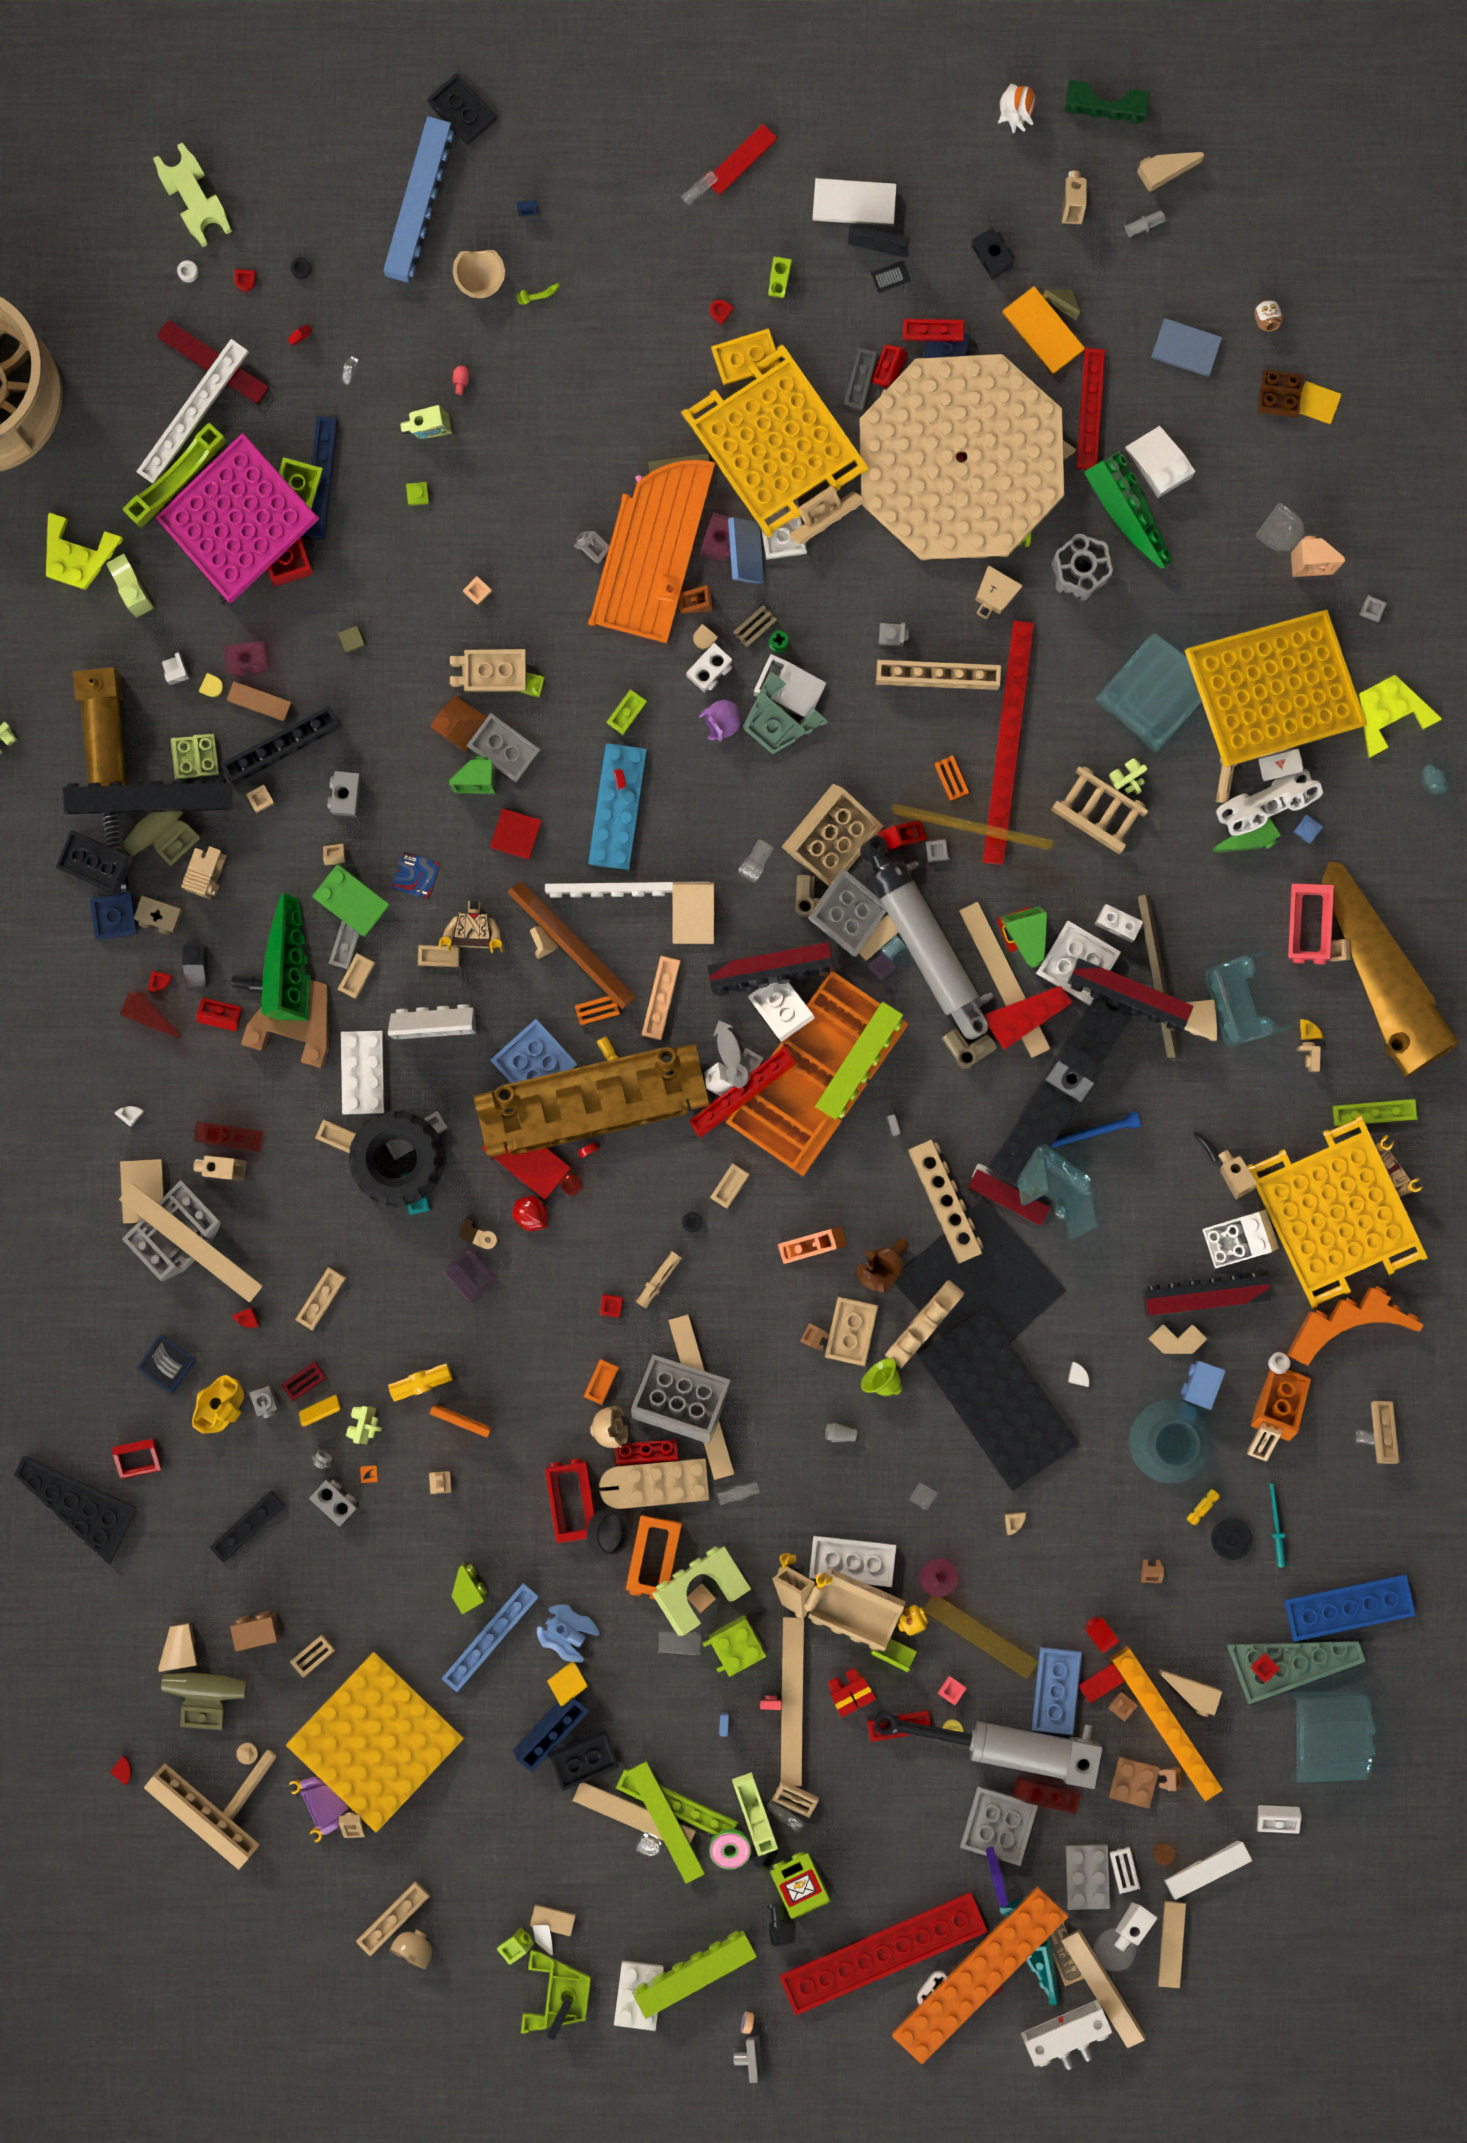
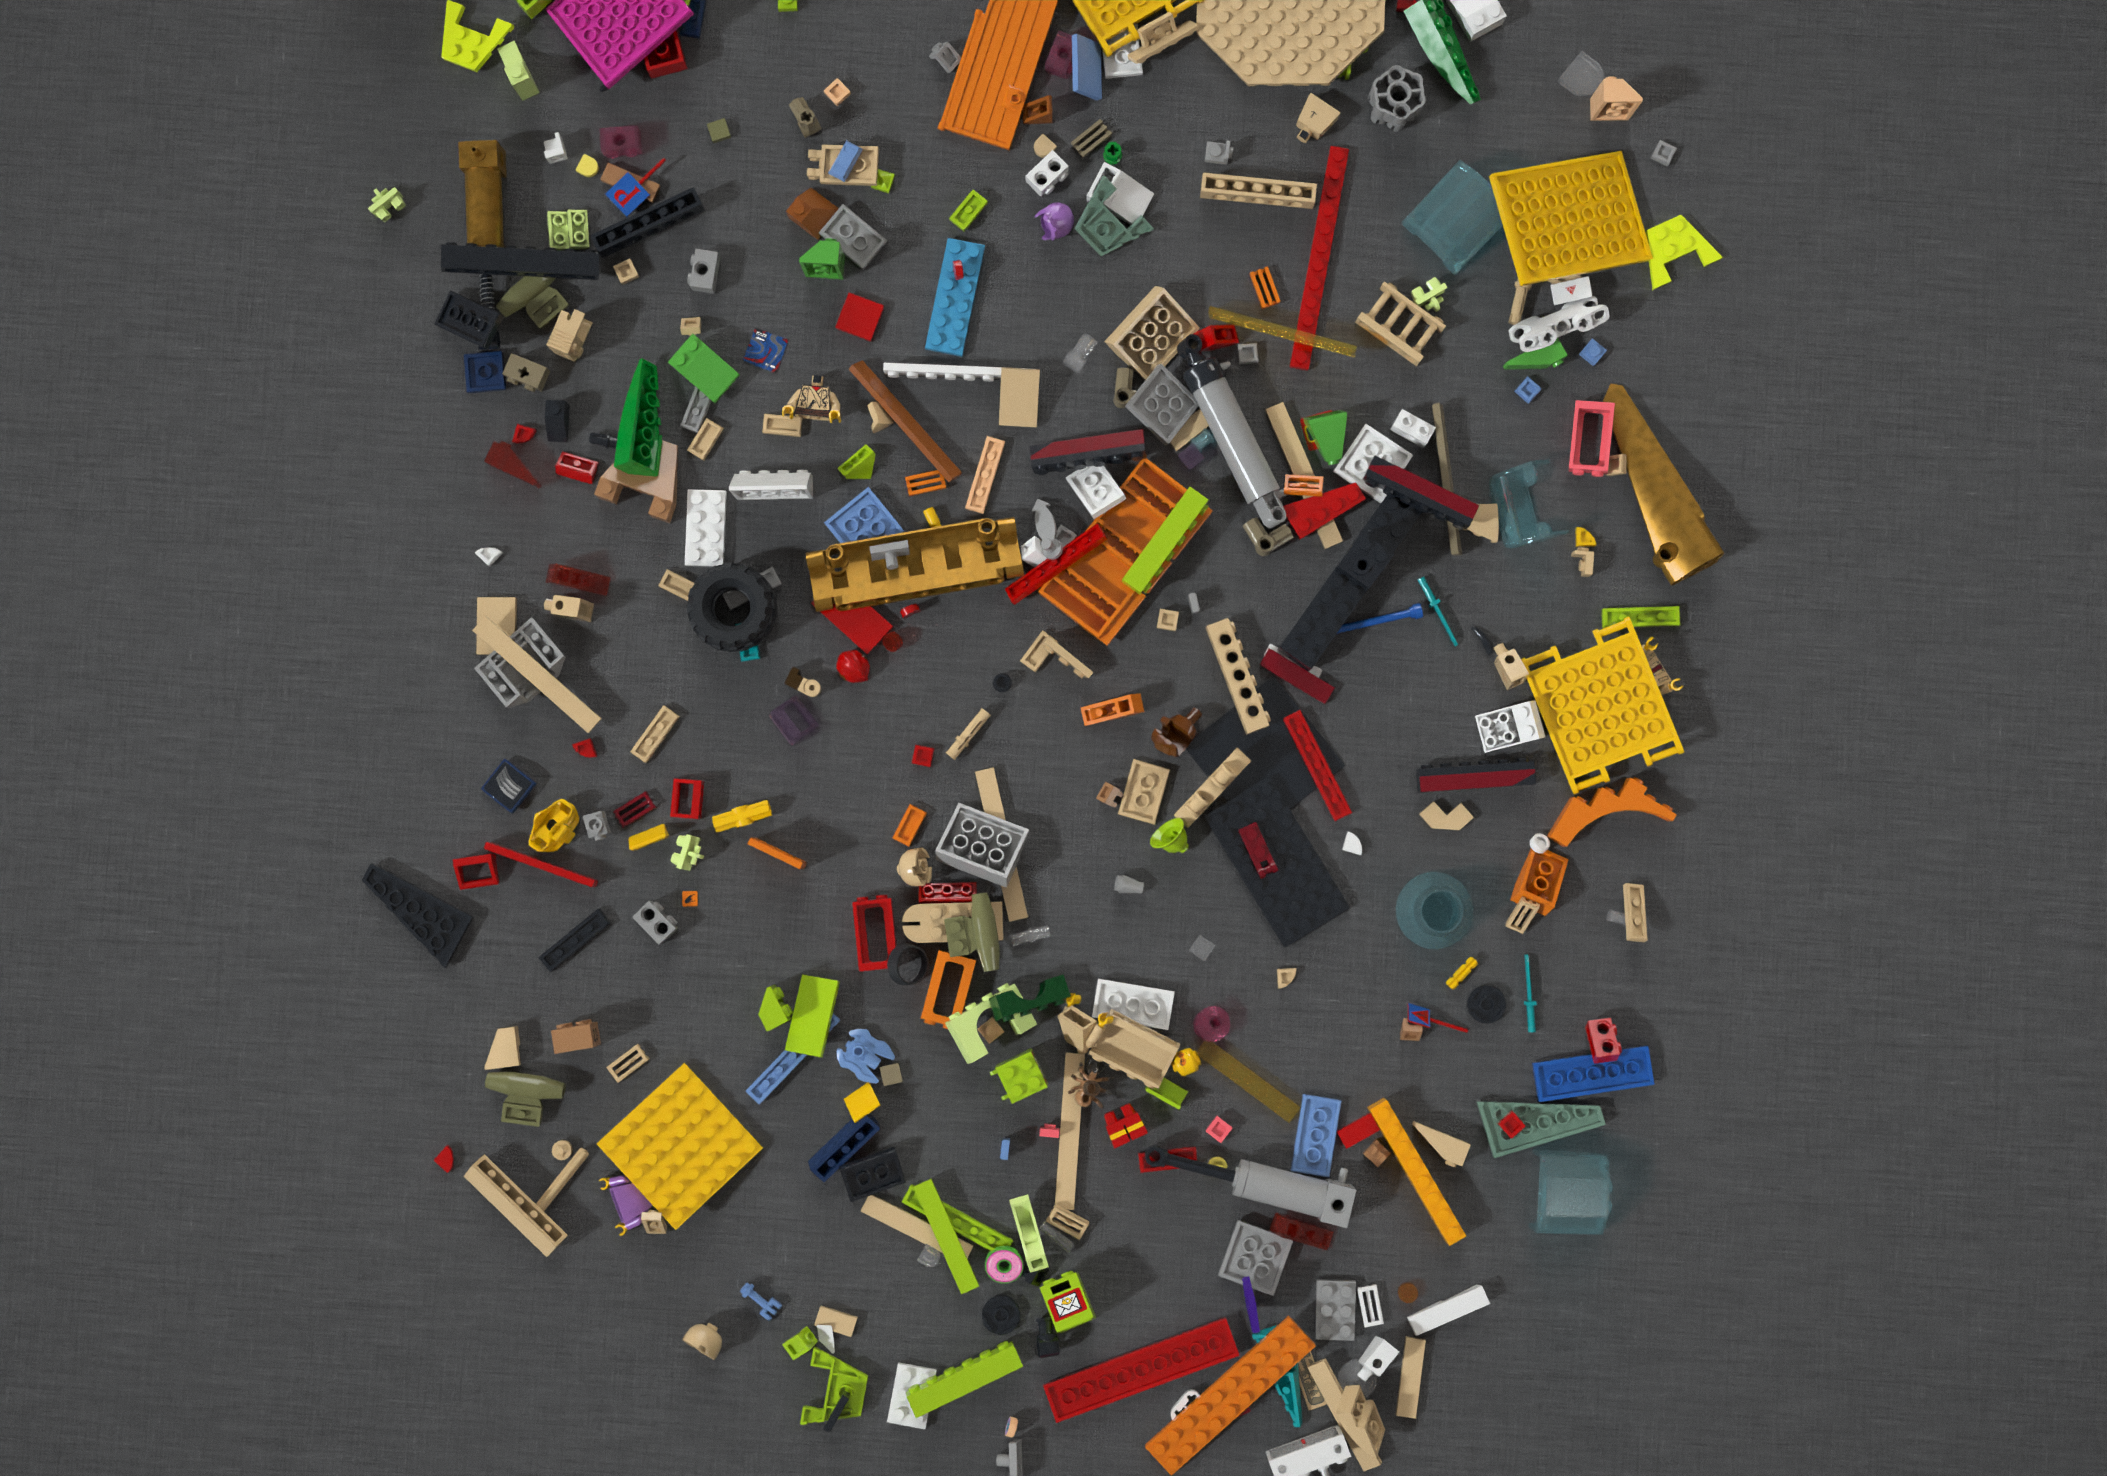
camera: 10 degrees right, 0 degrees up
(206, 1447) = (543, 865): none -> red tile
(258, 713) = (628, 193): none -> blue piece
(322, 1459) = (647, 882): light grey plate -> none
(371, 1366) = (697, 798): none -> red tile
(393, 1918) = (688, 1310): tan tile -> none
(440, 1482) = (755, 909): tan tile -> none
(446, 624) = (806, 119): none -> dark tan piece
(456, 1893) = (747, 1290): none -> medium blue hinge
(491, 667) = (845, 161): none -> medium blue tile
(508, 1594) = (812, 1016): none -> lime tile
(524, 995) = (859, 465): none -> lime slope
(563, 1090) = (890, 552): none -> light grey tile
(597, 1651) = (891, 1074): none -> dark tan tile
(672, 1643) = (969, 1072): clear tile -> none
(679, 1495) = (974, 933): none -> olive plate
(719, 1569) = (1010, 1004): none -> dark green arch
(729, 1903) = (1001, 1314): none -> black tile
(760, 1192) = (1066, 658): none -> tan plate
(811, 1653) = (1089, 1088): none -> animal
(866, 1144) = (1167, 620): none -> tan plate
(977, 1387) = (1257, 849): none -> dark red plate
(1004, 995) = (1303, 488): none -> orange tile
(1036, 1292) = (1317, 765): none -> red tile
(1064, 1184) = (1348, 665): clear light blue windscreen -> none
(1100, 1633) = (1360, 1084): red slope -> none
(1121, 1993) = (1361, 1420): none -> tan slope
(1133, 1782) = (1383, 1224): medium nougat plate -> none
(1151, 1109) = (1433, 603): none -> teal sword
(1162, 1557) = (1421, 1016): none -> piece
(1173, 1778) = (1421, 1223): medium nougat tile -> none
(1202, 1384) = (1467, 858): medium blue slope -> none
(1240, 873) = (1528, 389): none -> medium blue tile
(1278, 1819) = (1516, 1266): white slope -> none
(1352, 1572) = (1598, 1040): none -> red brick
(1434, 780) = (1713, 312): clear light blue head -> none

